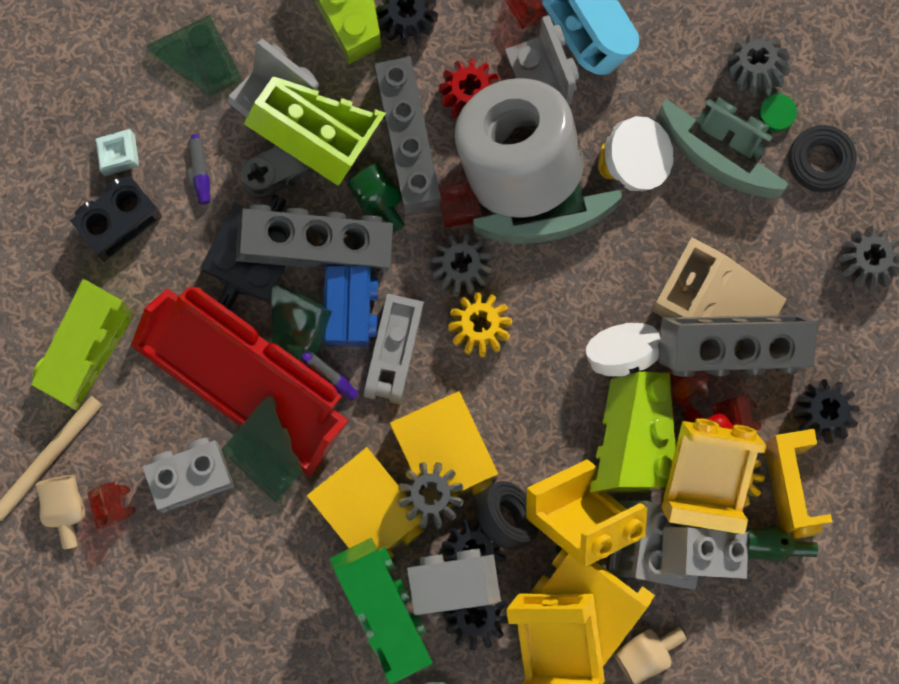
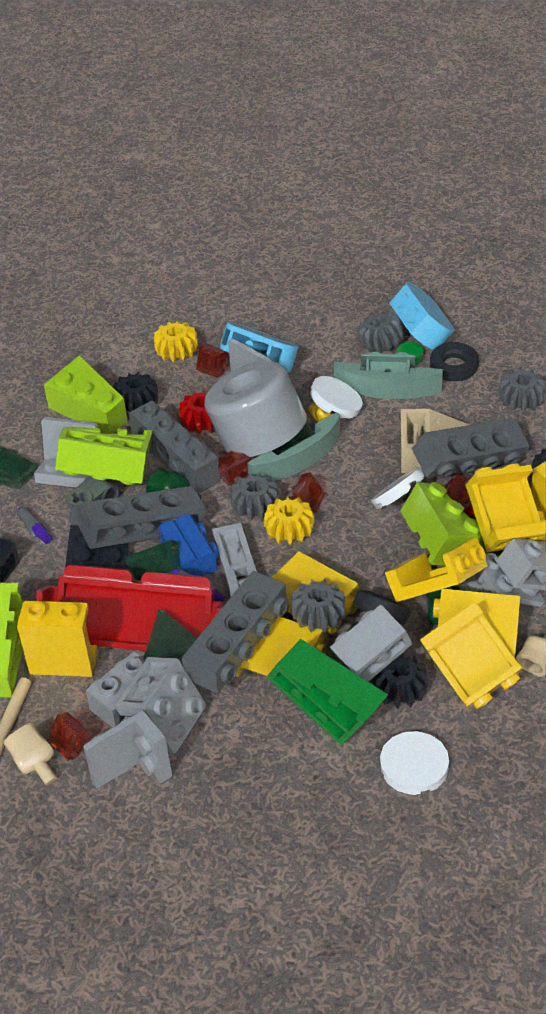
camera: 25 degrees left, 35 degrees down
(140, 384) = (56, 638): none -> yellow panel
(170, 582) = (125, 746): none -> light grey bracket
(211, 523) = (166, 697): none -> light grey bracket
(270, 505) = (235, 632): none -> dark grey brick
(522, 294) = (308, 491): none -> clear red tile
(821, 70) = (422, 316): none -> medium azure brick

